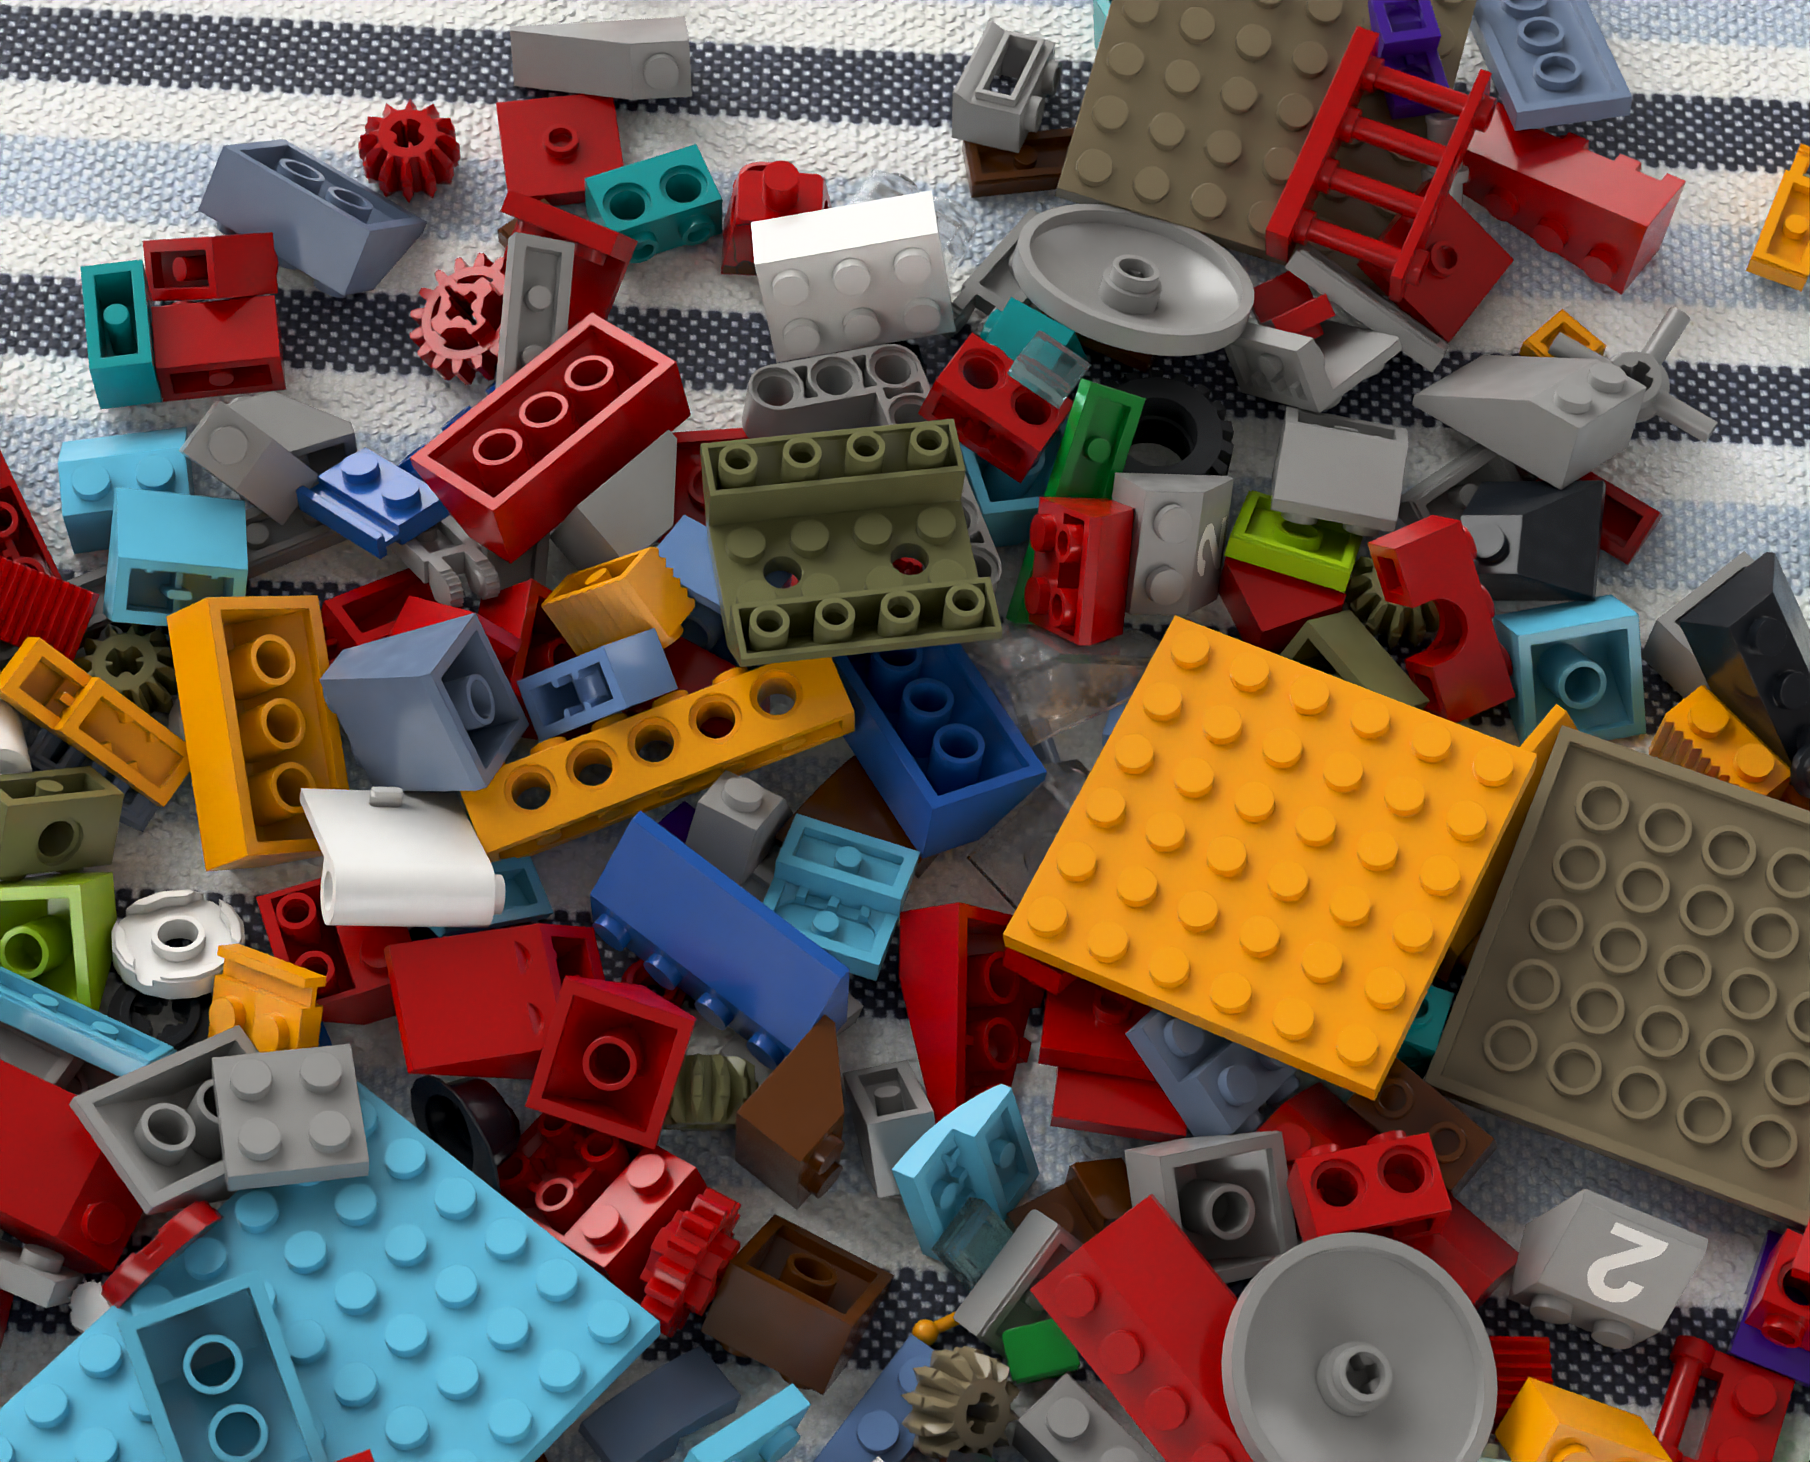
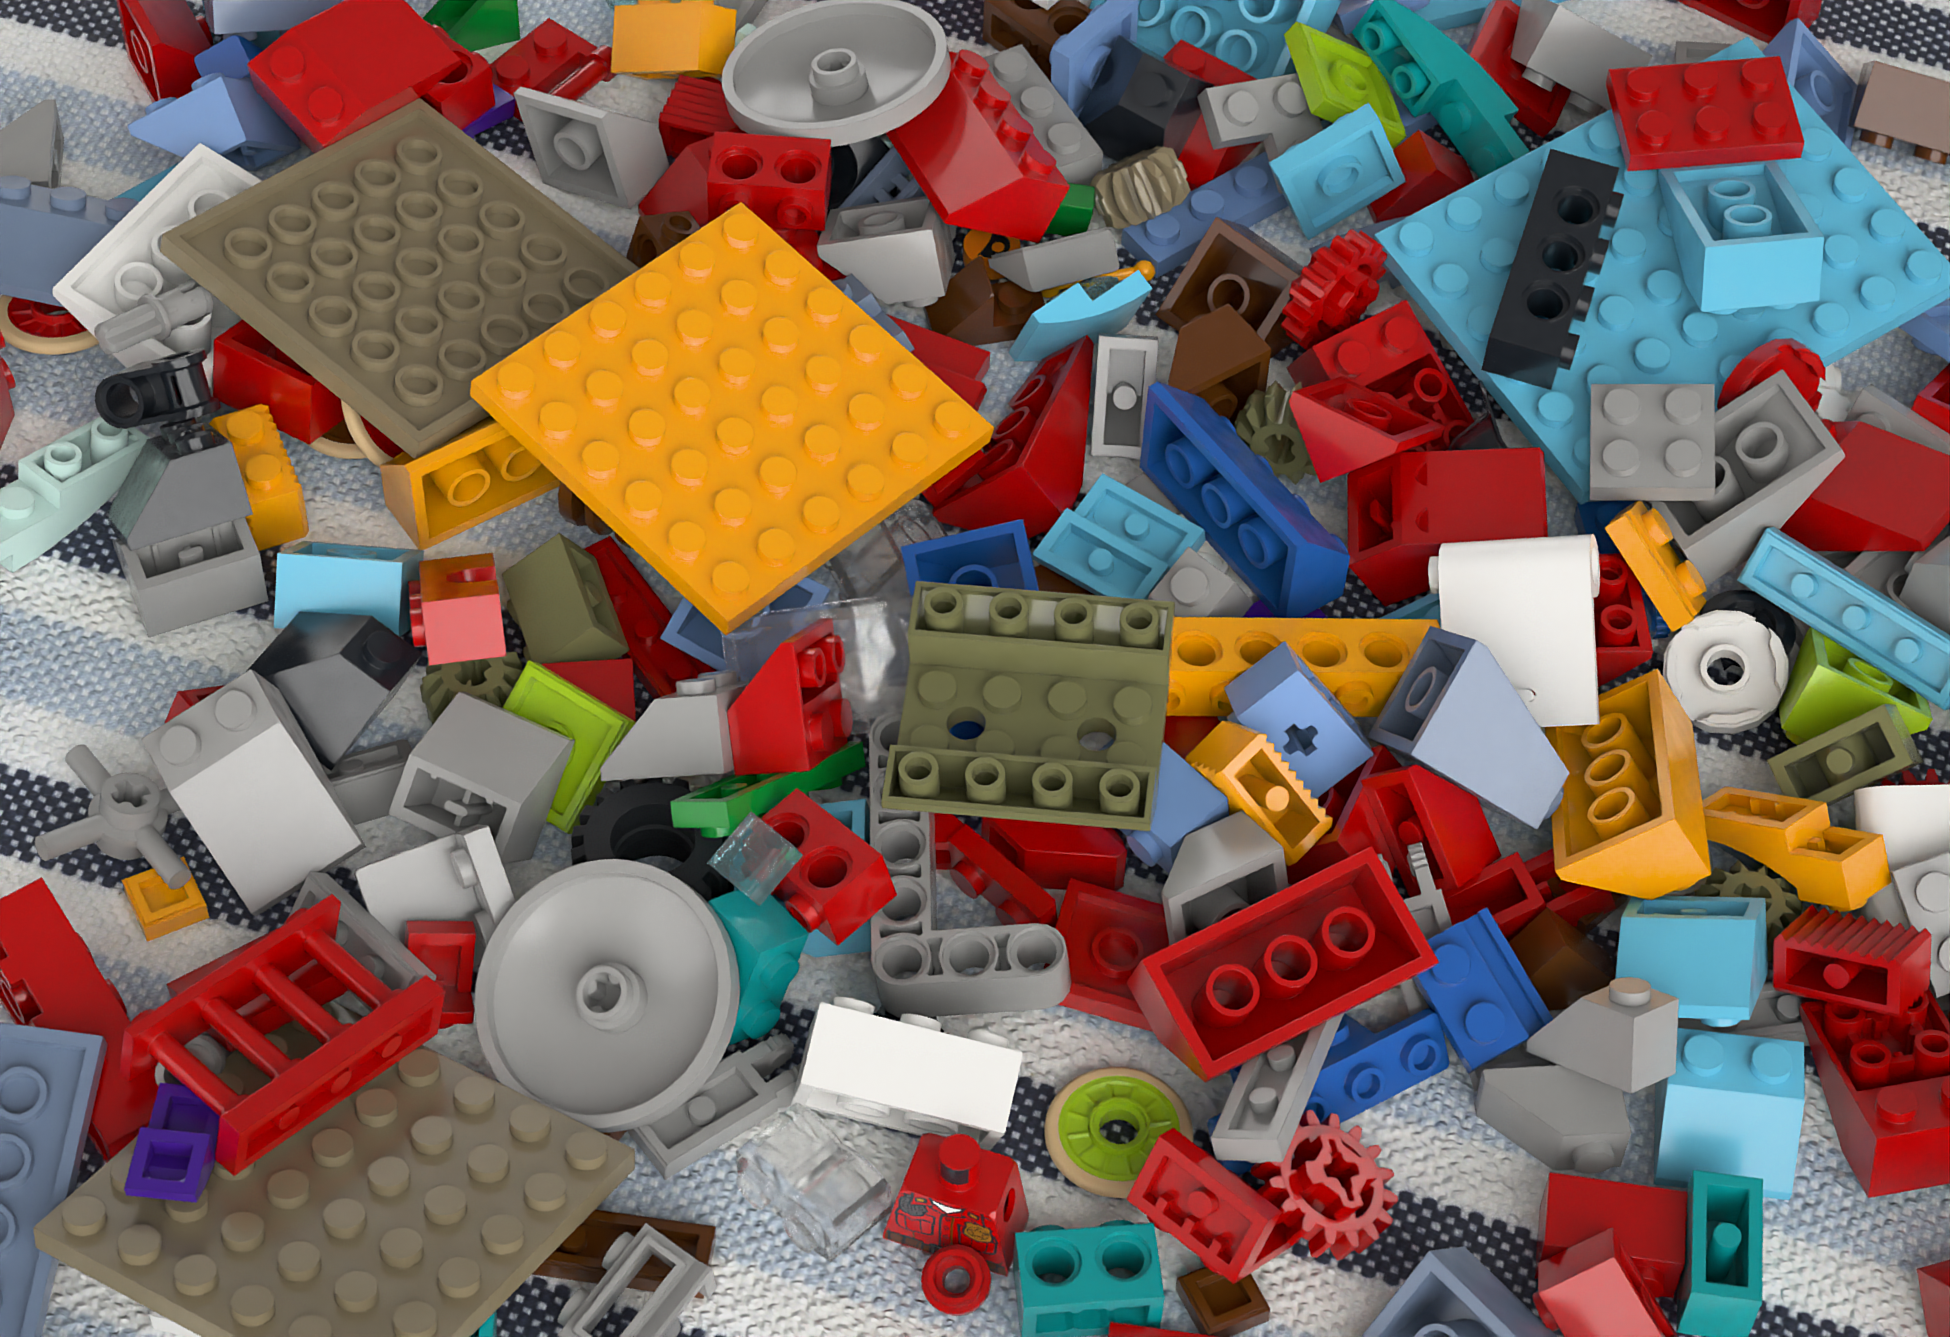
camera: 160 degrees left, 10 degrees down
(310, 565) = (1561, 960): none -> reddish brown slope
(438, 1385) = (1520, 342): none -> black brick
(689, 322) = (1103, 1096): none -> lime wheel

